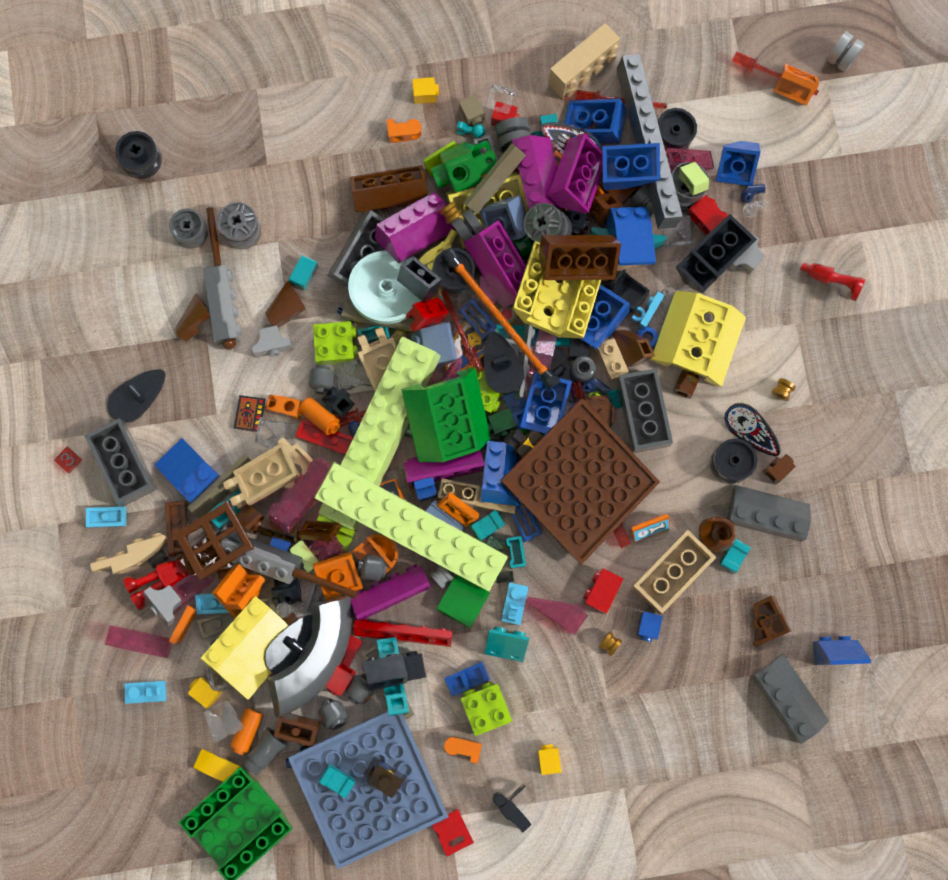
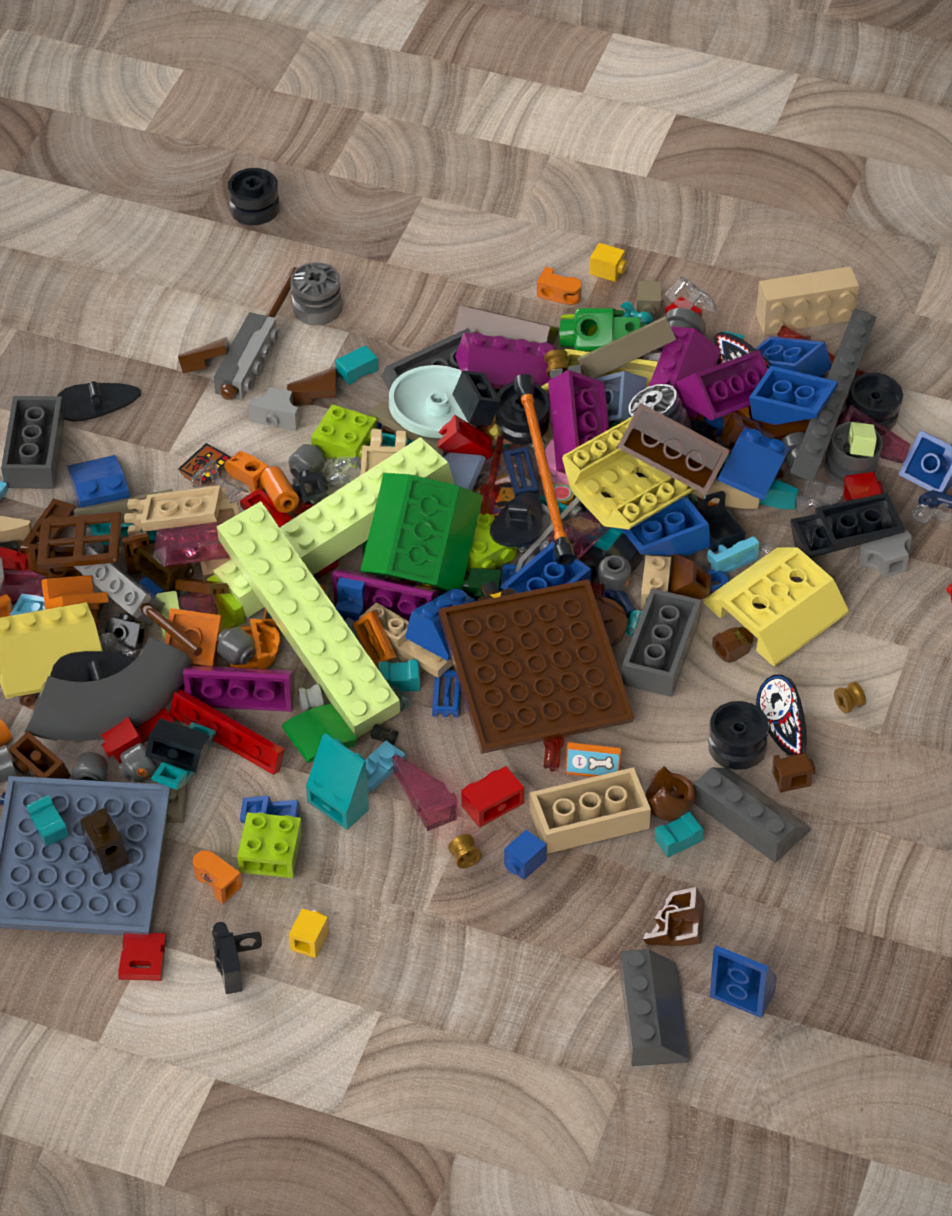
camera: 30 degrees right, 30 degrees down
(188, 228) = (259, 276): dark grey wheel -> none
(414, 666) = (216, 770): black brick -> none
(516, 551) = (414, 716): teal piece -> none

